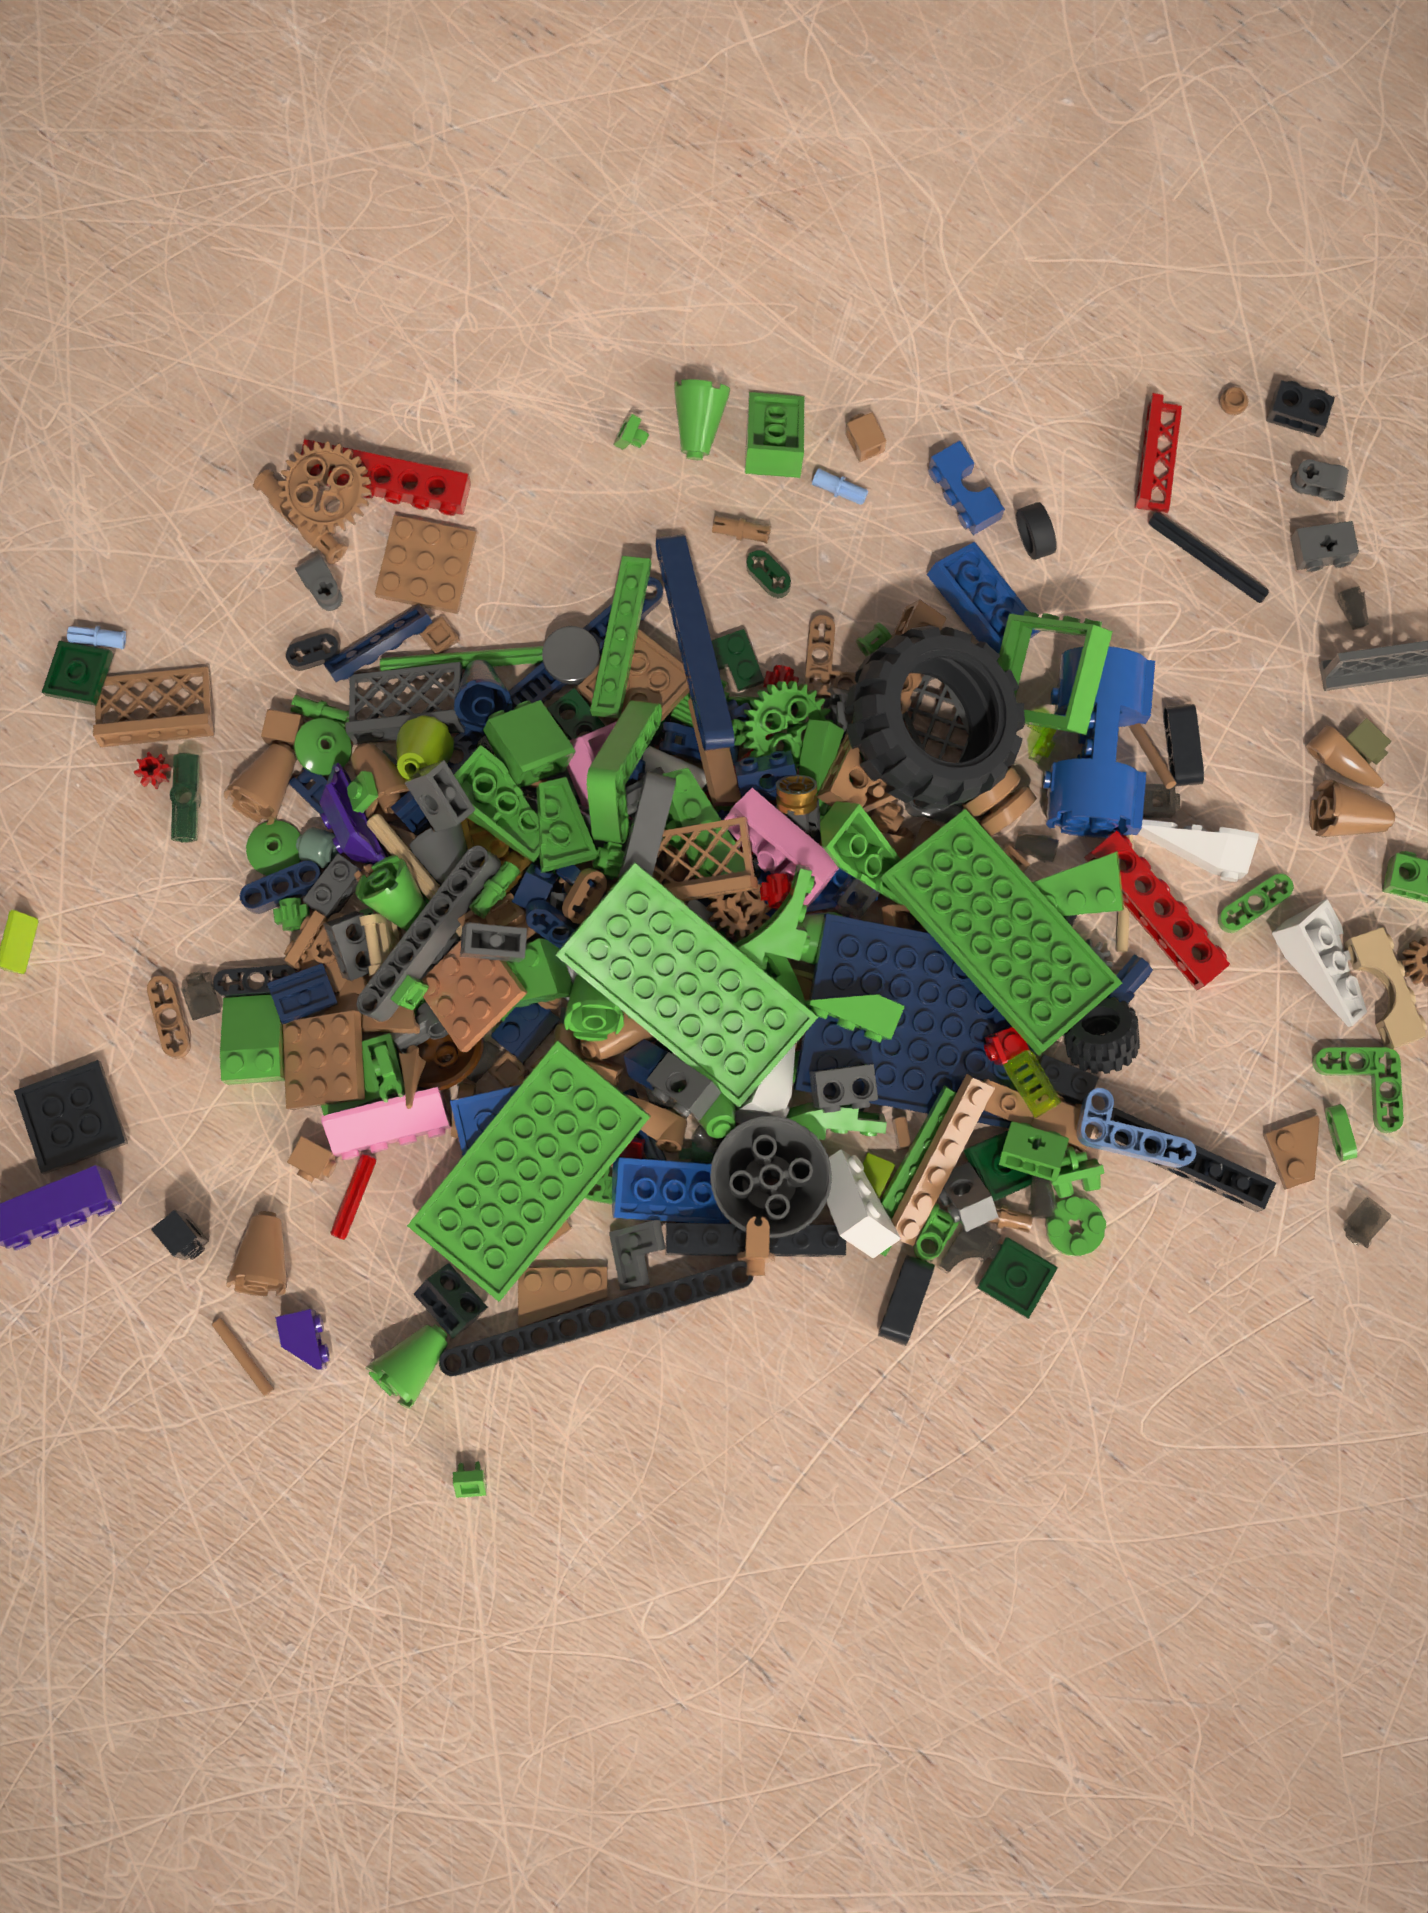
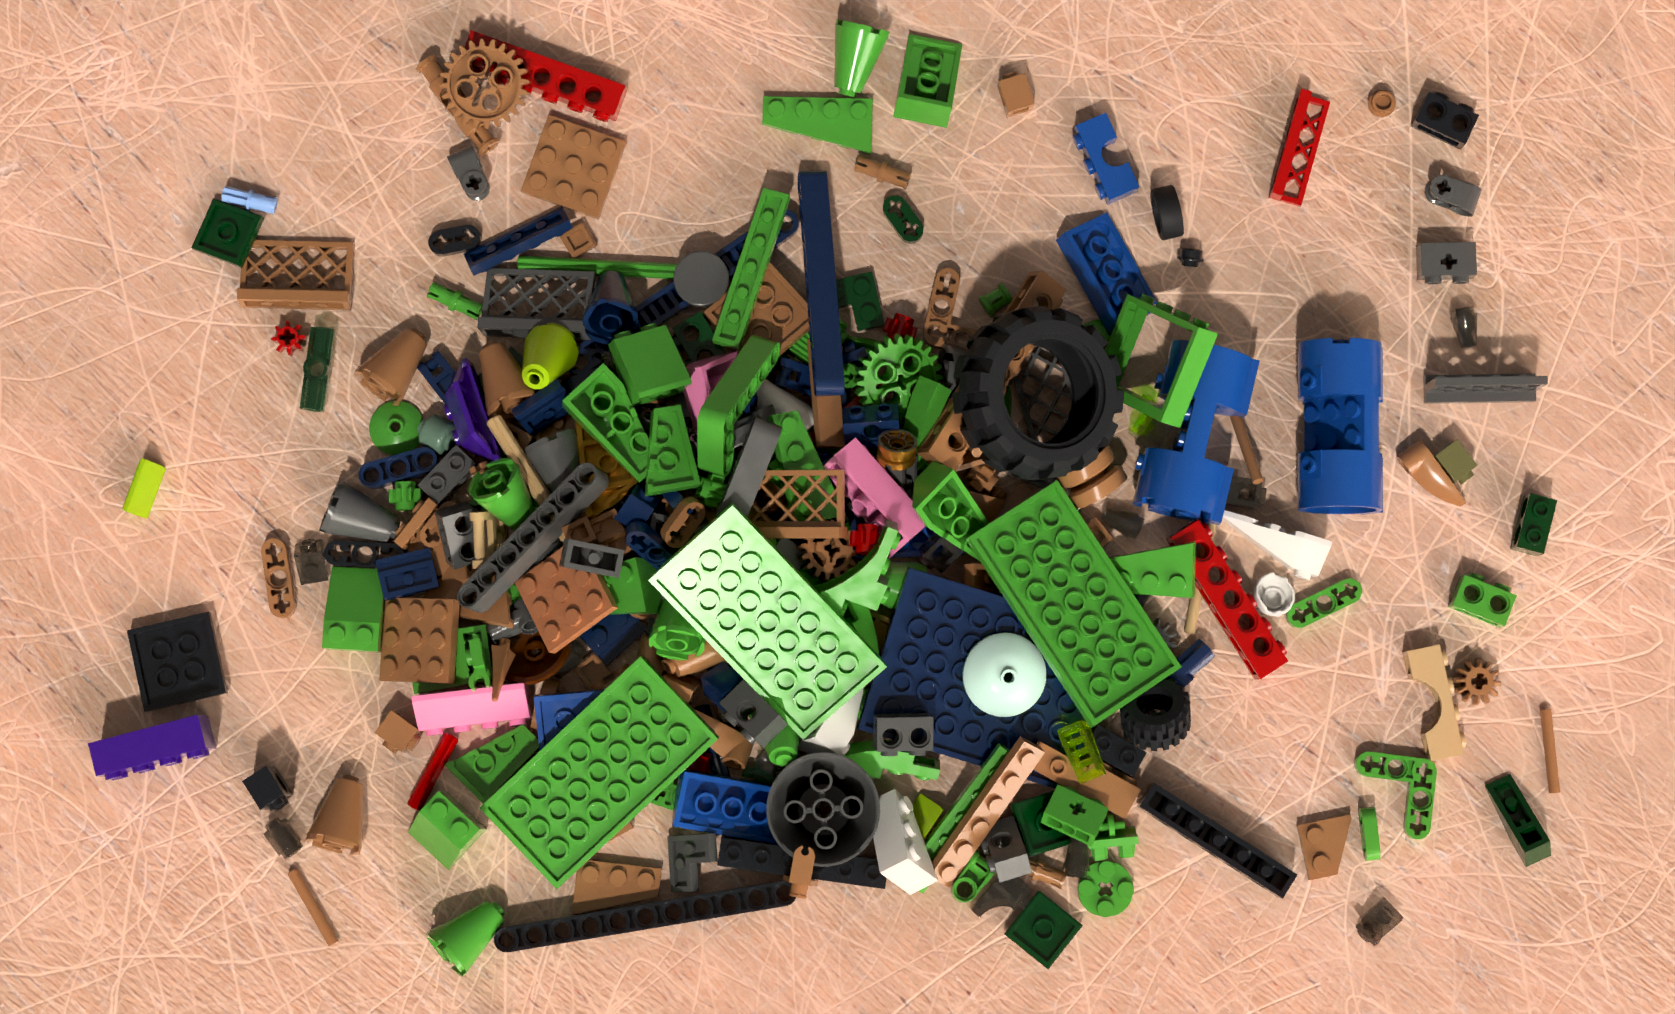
camera: 10 degrees right, 5 degrees up
(202, 1286) = (283, 837): none -> clear smoke brick
(243, 940) = (357, 516): none -> dark grey cone
(281, 727) = (419, 314): medium nougat brick -> none
(301, 1337) = (369, 897): dark purple slope -> none
(309, 749) = (440, 336): bright green dish -> none
(362, 791) = (486, 392): bright green plate -> none
(373, 1254) = (446, 828): none -> bright green slope
(410, 992) = (508, 590): bright green tile -> none
(417, 1178) = (494, 763): none -> bright green wing
(440, 796) = (558, 410): dark grey brick -> none
(450, 1300) = (511, 881): black brick -> none
(494, 889) = (599, 505): bright green pin -> none
(630, 433) = (787, 62): bright green tile -> none
(679, 485) = (823, 119): none -> bright green wing
(839, 486) = (984, 141): light blue axle -> none
(869, 1013) = (933, 665): bright green slope -> none
(901, 1133) = (954, 780): medium nougat tile -> none
(906, 1300) = (936, 936): black beam -> none
(922, 1020) = (989, 663): none -> light aqua dish
(1004, 1045) = (1060, 712): red bracket -> none
(1065, 574) = (1190, 257): none -> black plate
(1135, 1135) = (1171, 814): medium blue beam -> none
(1183, 744) = (1278, 441): black beam -> none
(1203, 900) = (1273, 595): none -> white hair
(1208, 557) = (1332, 257): black axle -> none
(1247, 719) = (1341, 426): none -> blue cylinder
(1316, 951) = (1374, 659): white wedge -> none
(1348, 811) = (1425, 528): medium nougat cone -> none

